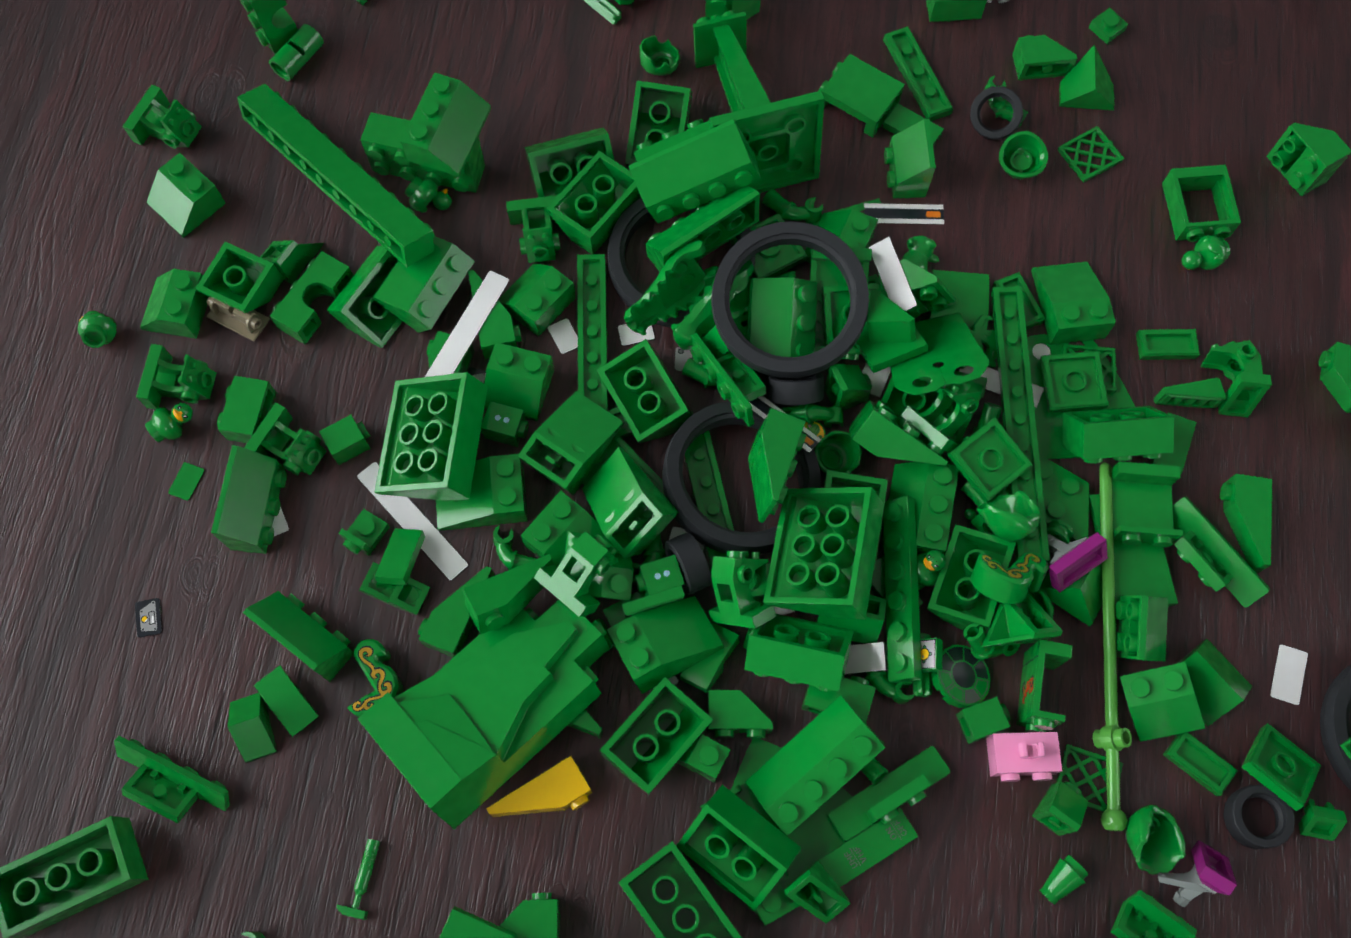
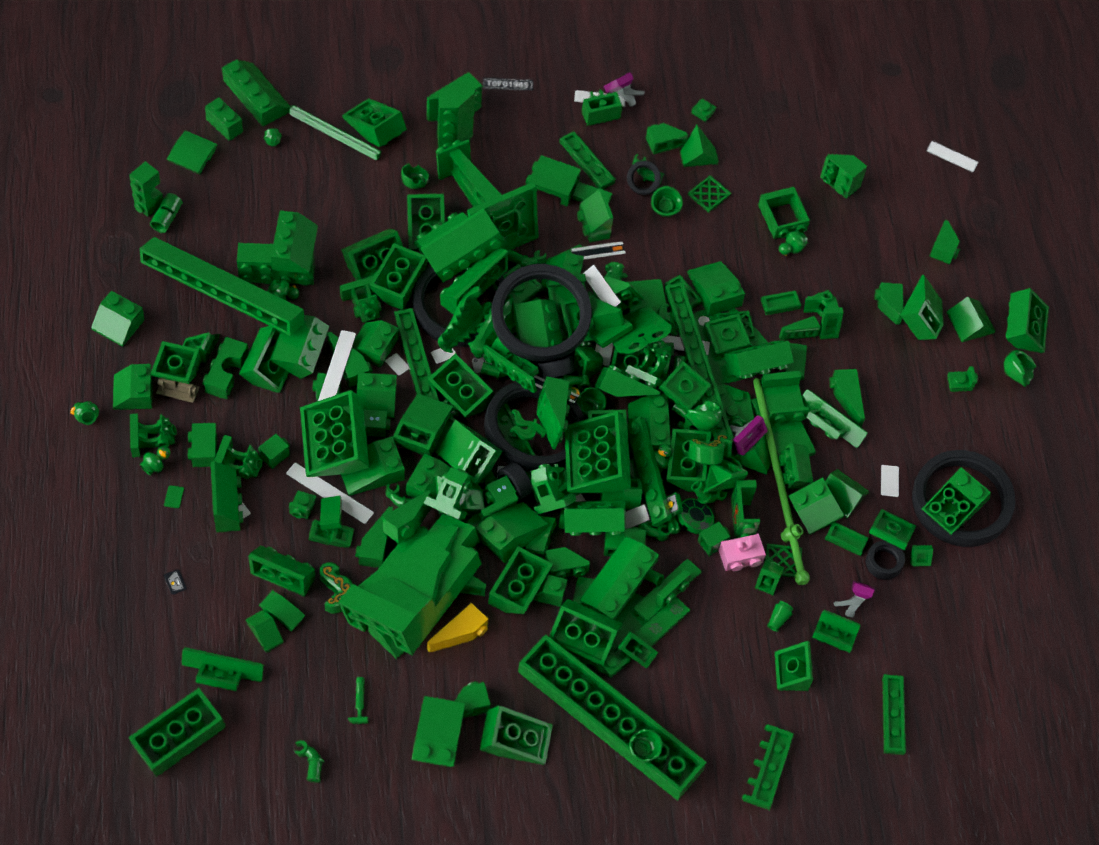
camera: 20 degrees left, 10 degrees down
(173, 126) = (79, 271): green tile -> none
(728, 489) = (529, 433): none -> green piece
(1155, 839) = (827, 581): green hair -> none

